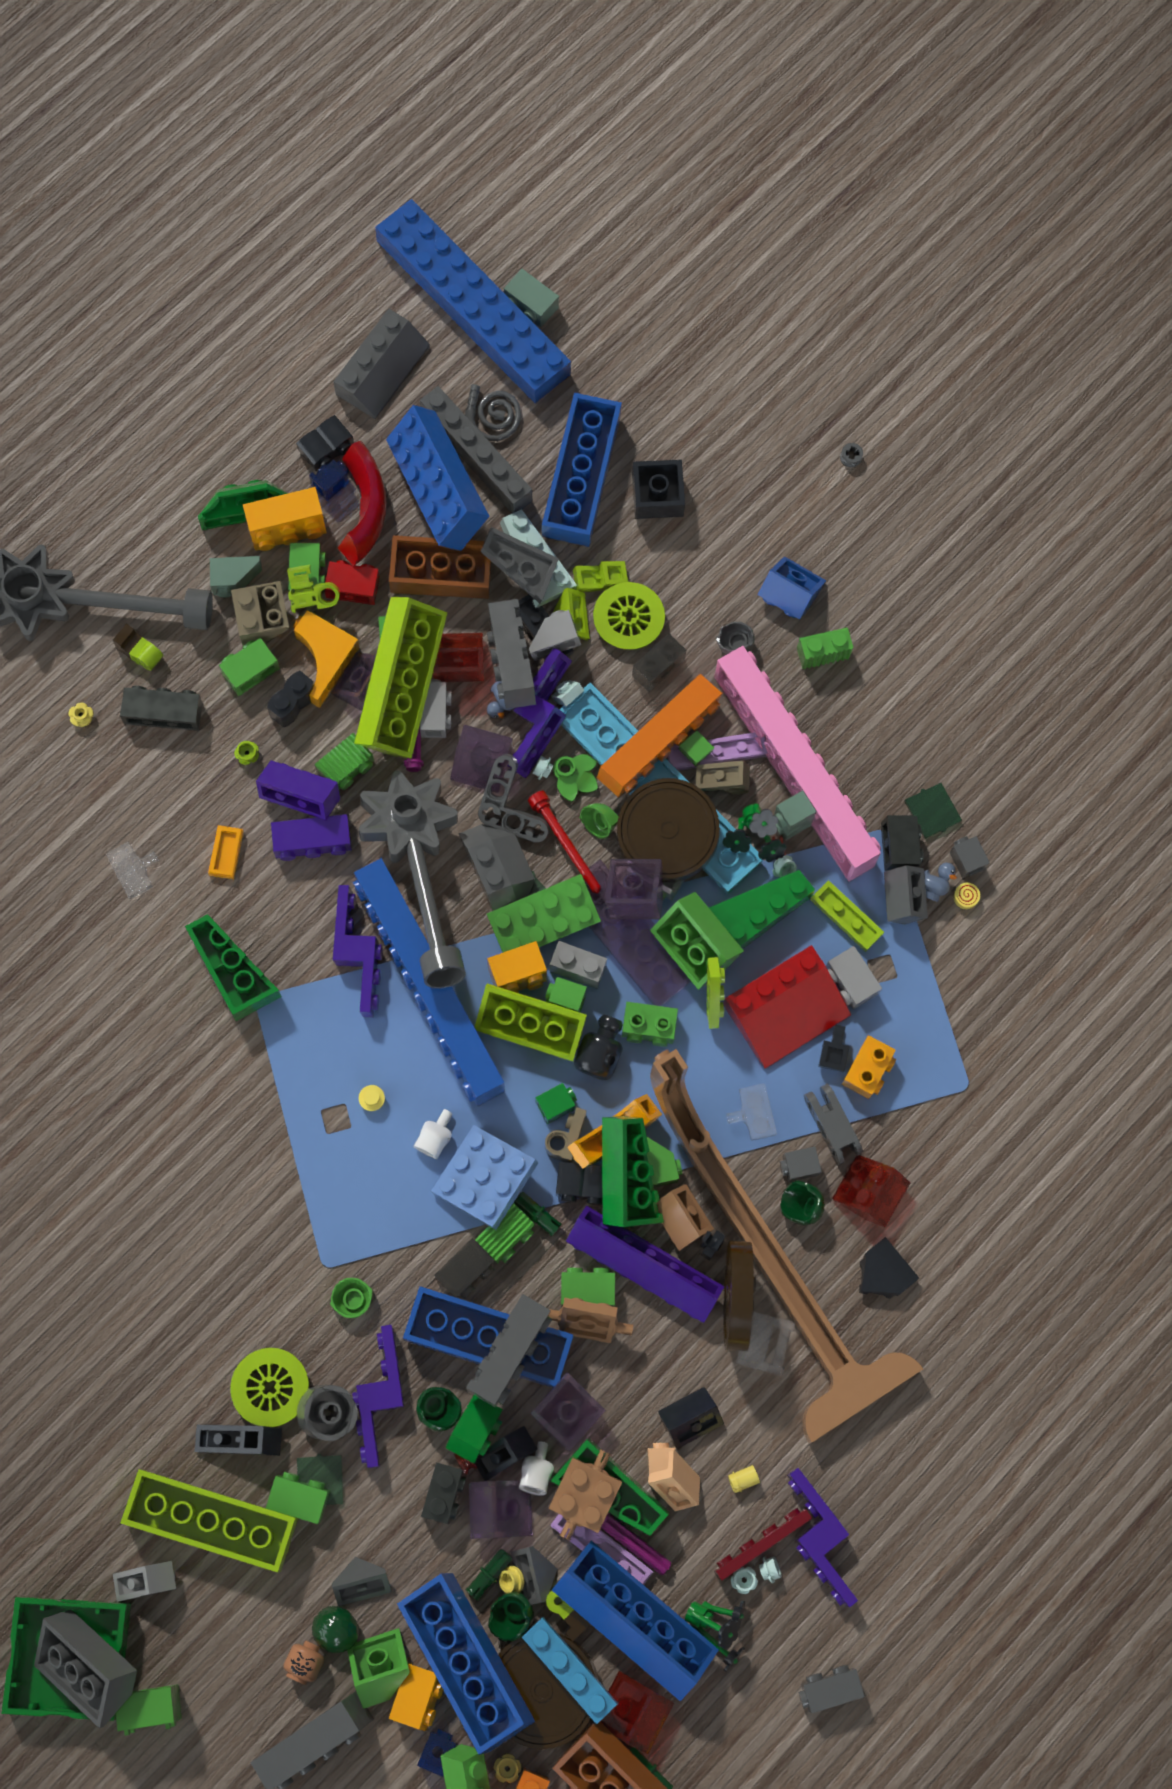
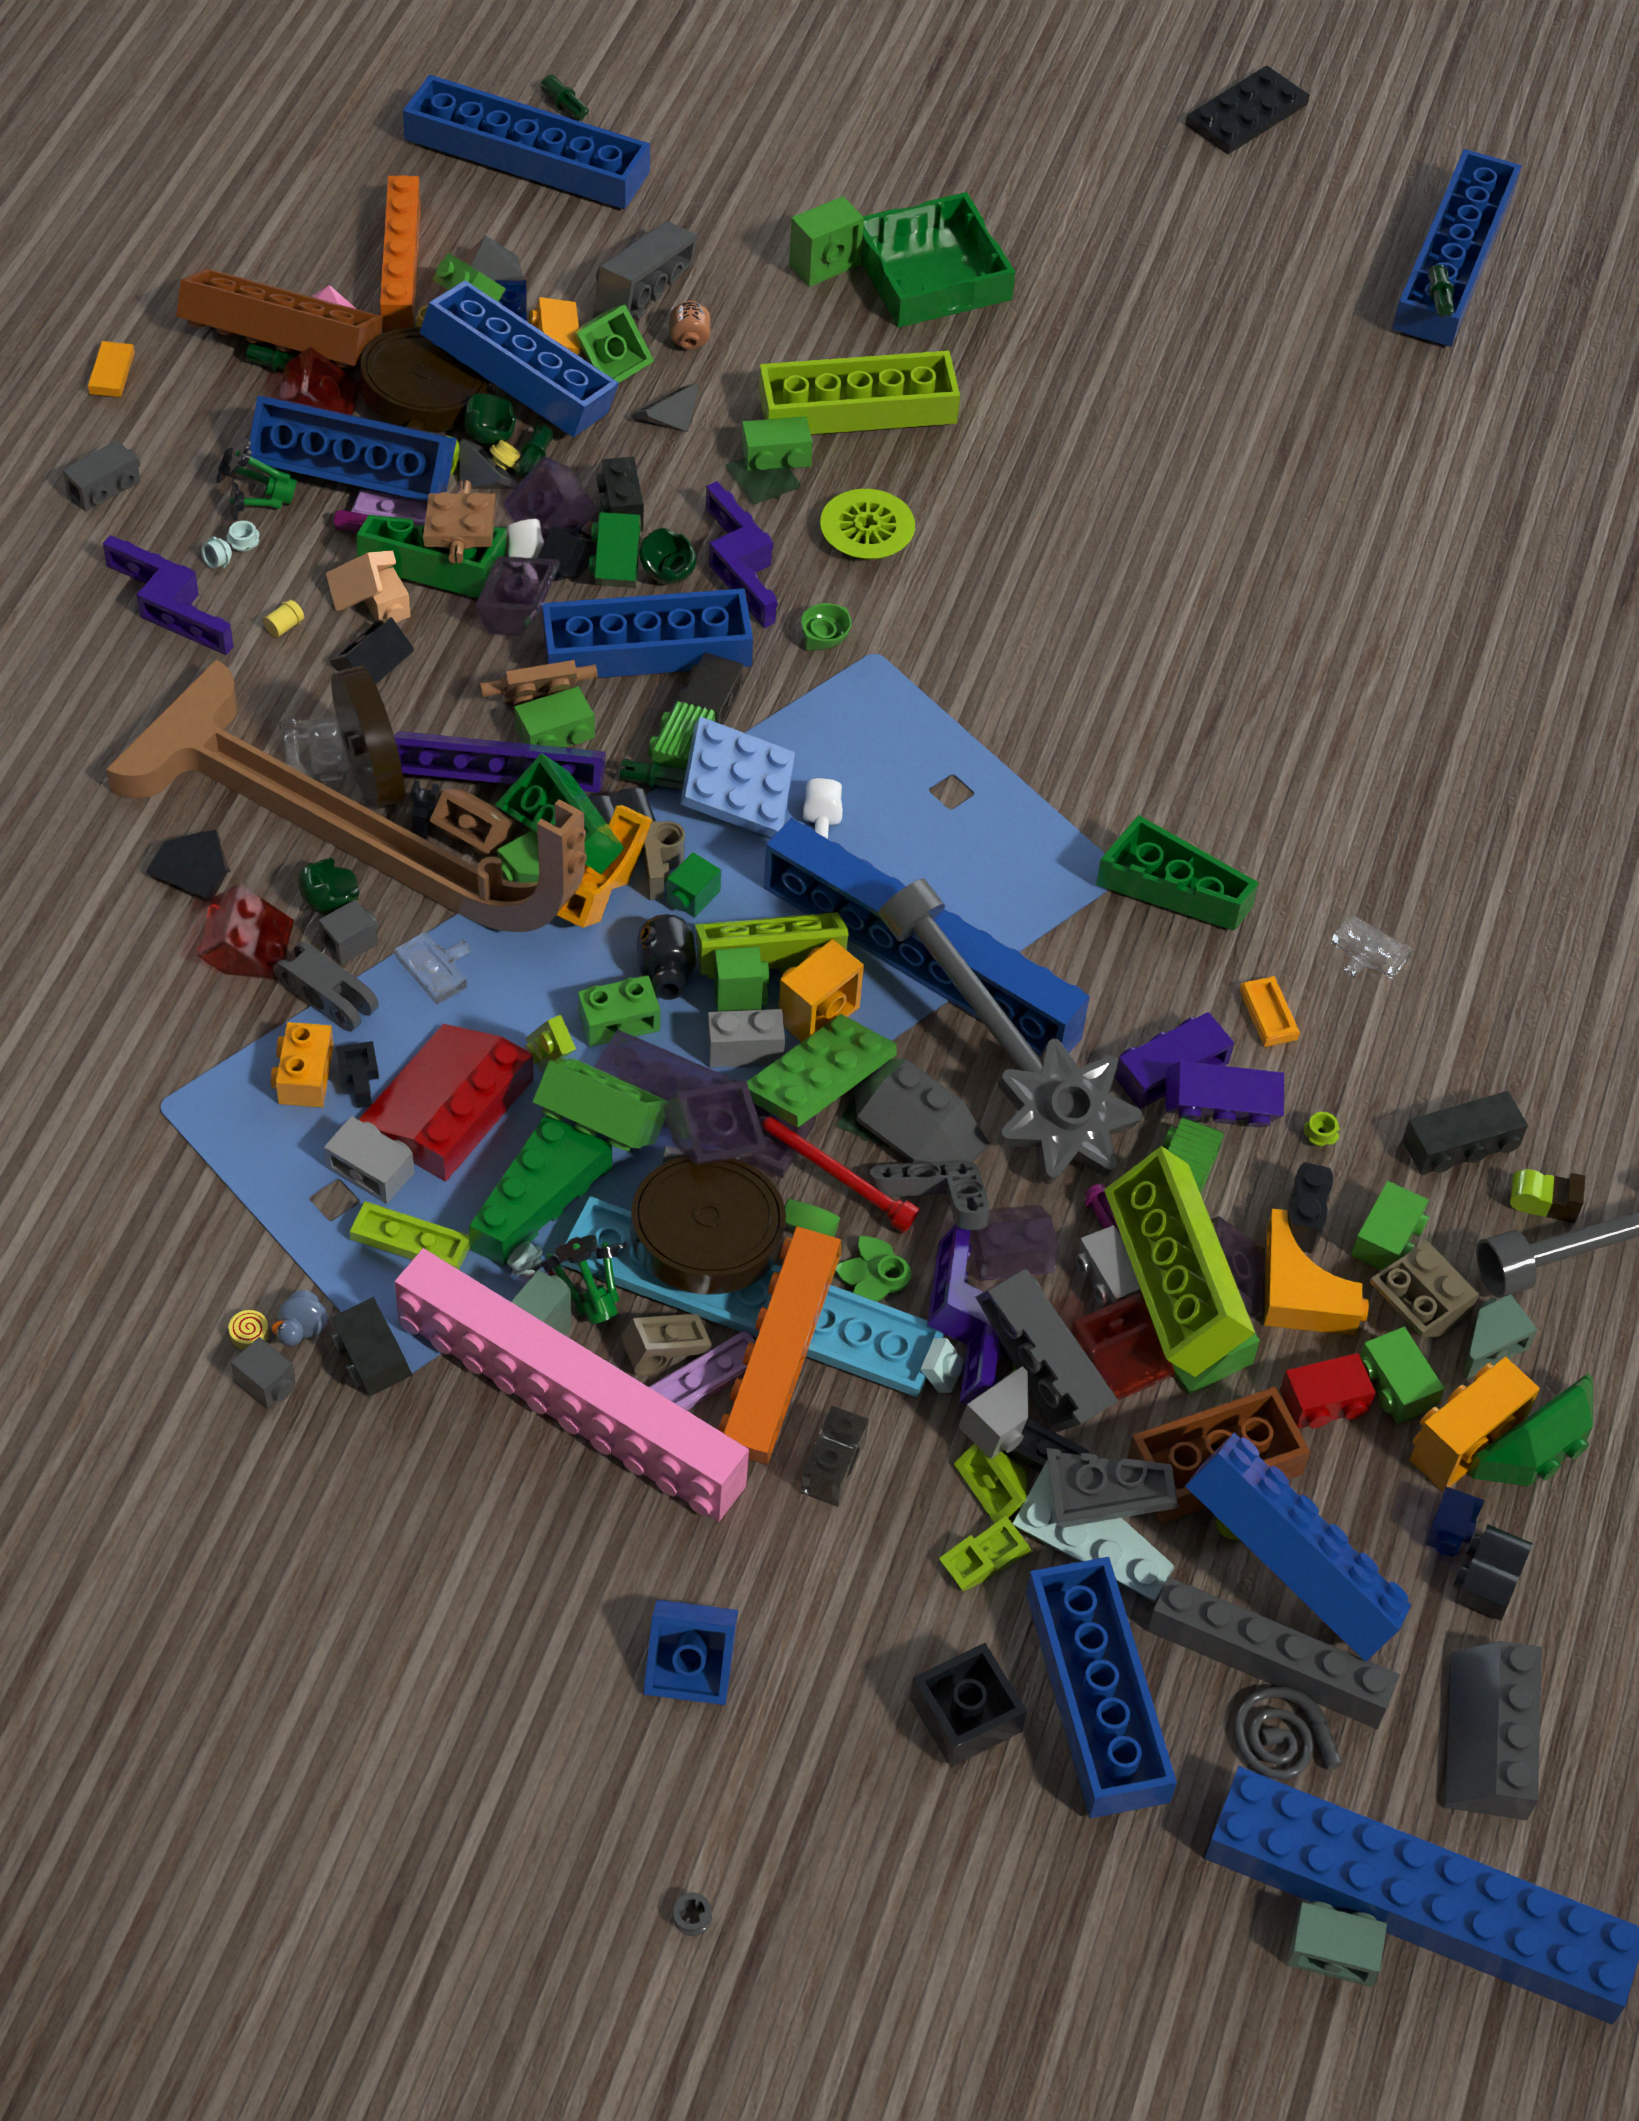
camera: 155 degrees right, 20 degrees down
(84, 720) = (1556, 1099): light yellow plate -> none
(84, 1666) = (907, 236): dark grey slope -> none
(144, 1581) = (892, 334): light grey slope -> none
(238, 1439) = (869, 468): black slope -> none
(305, 593) = (1357, 1333): lime piece -> none
(324, 1427) = (790, 511): dark grey brick -> none
(335, 1629) = (673, 361): dark green hair -> none
(357, 951) = (1042, 946): dark purple bracket -> none
(371, 1098) = (921, 818): light yellow plate -> none
(372, 503) = (1366, 1508): red brick -> none
(509, 1351) = (614, 593): dark grey wedge -> none
(542, 767) = (923, 1260): light aqua plate -> none
(570, 1670) = (402, 383): dark azure plate -> none
(636, 592) = (911, 1472): lime piece -> none
(696, 748) = (722, 1361): bright green tile -> none
(734, 636) = (739, 1532): dark grey hair -> none
(752, 1549) = (237, 565): dark red plate -> none
(824, 648) = (599, 1576): bright green brick -> none
(905, 895) = (335, 1274): dark grey brick -> none
(933, 810) = (342, 1427): clear green piece -> none

